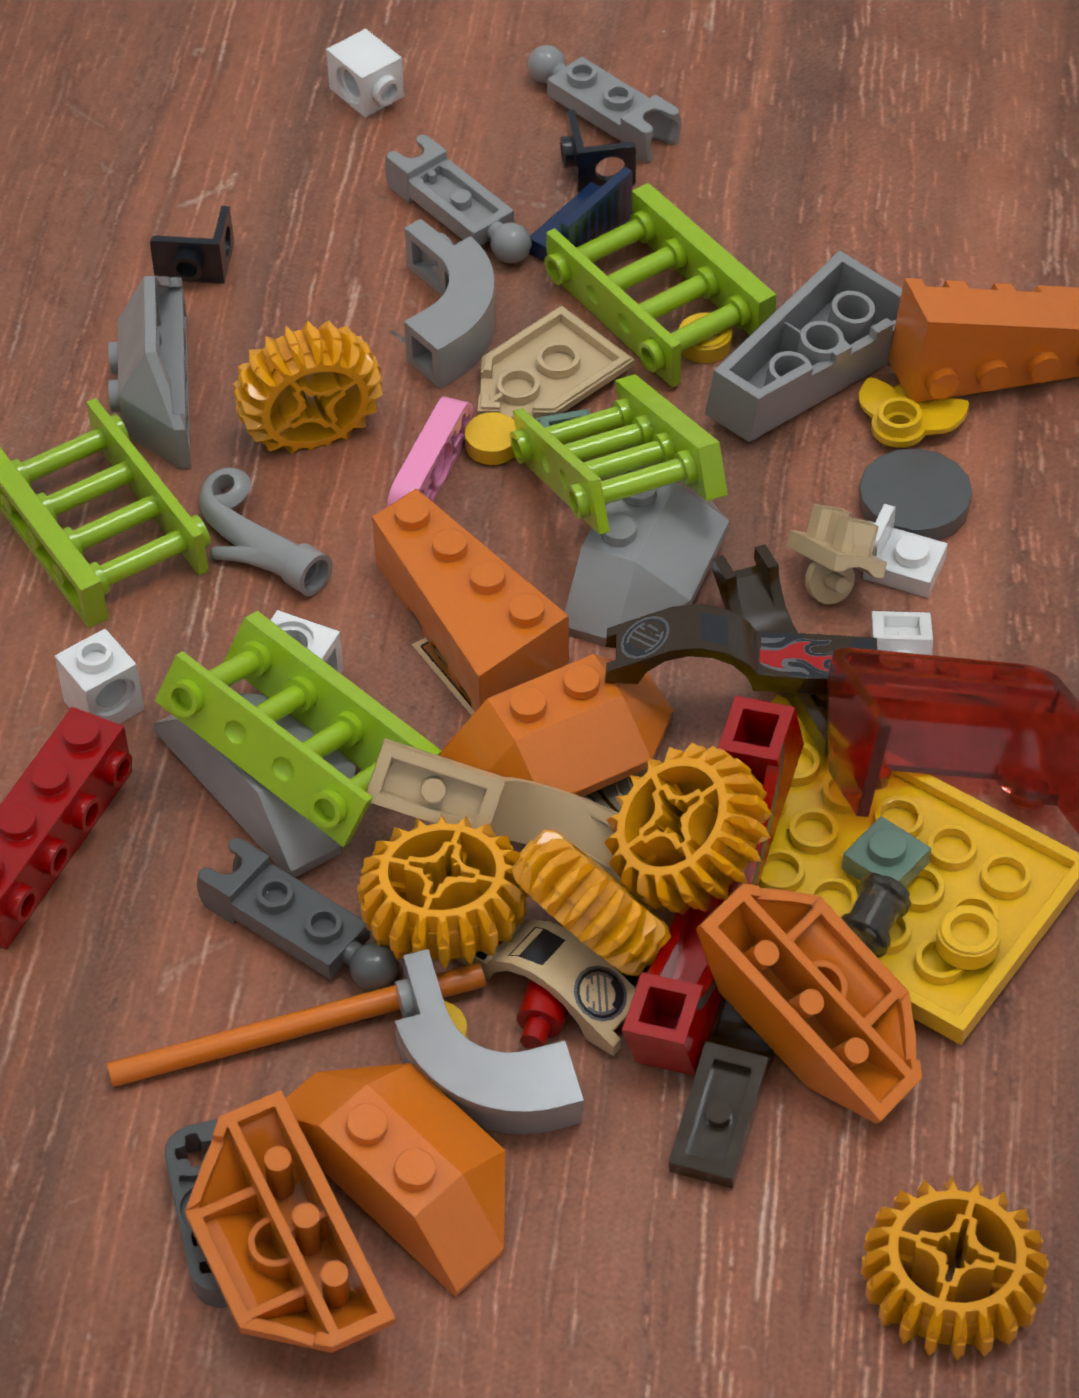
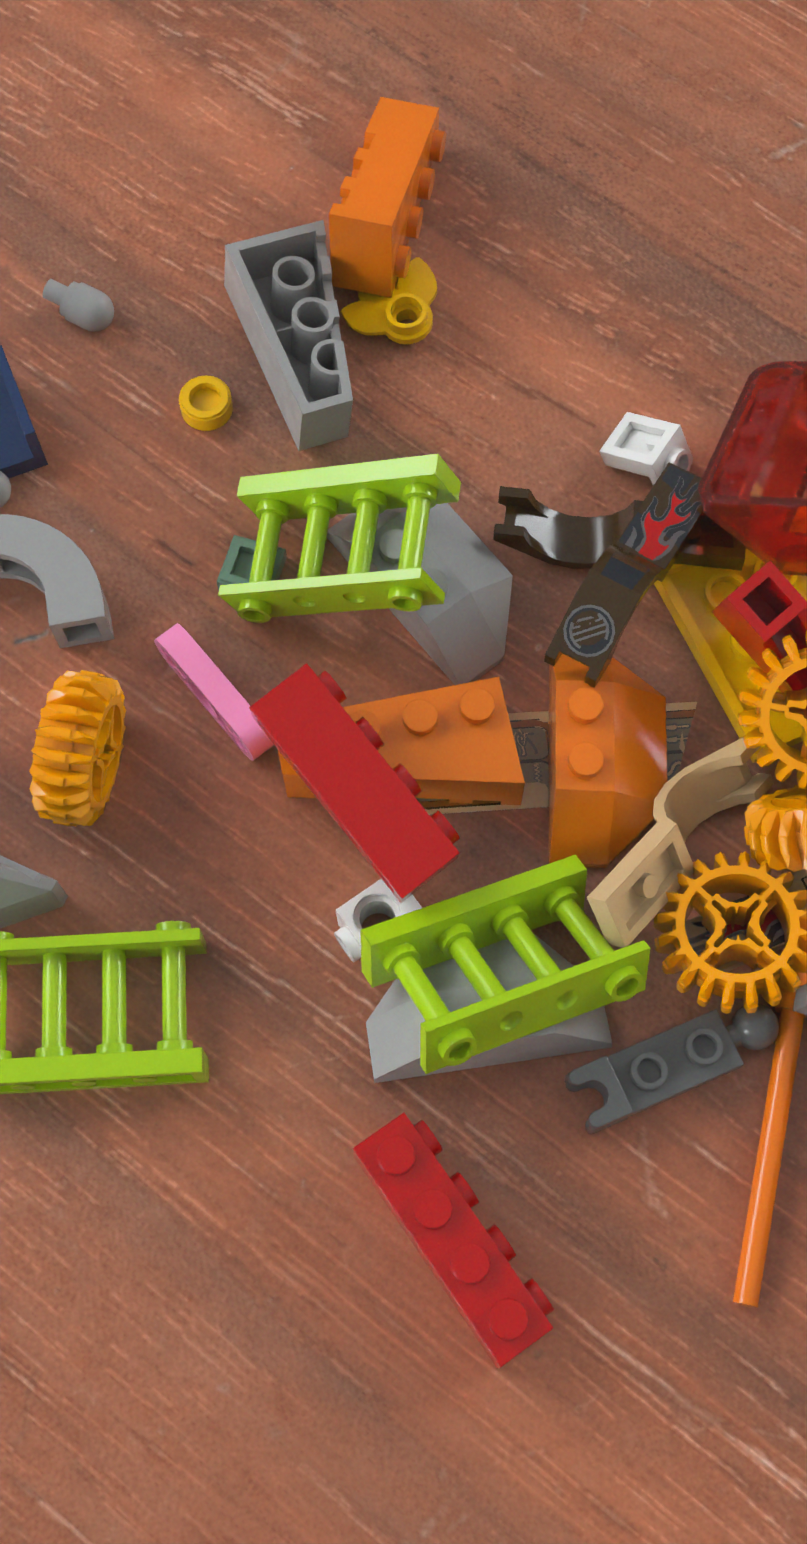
camera: 60 degrees left, 20 degrees up
(100, 678) = (308, 1105): white brick -> none
(298, 564) = (211, 887): light grey plant -> none
(381, 544) = (355, 782): none -> red brick
(489, 438) = (213, 627): yellow tile -> none
(549, 367) = (159, 541): tan tile -> none
(679, 246) = (129, 355): lime fence -> none
(731, 216) = (81, 304): none -> light grey cylinder
(836, 546) = (535, 446): tan hips -> none
(910, 558) = (549, 398): white bracket -> none
(923, 485) = (487, 352): dark grey tile -> none

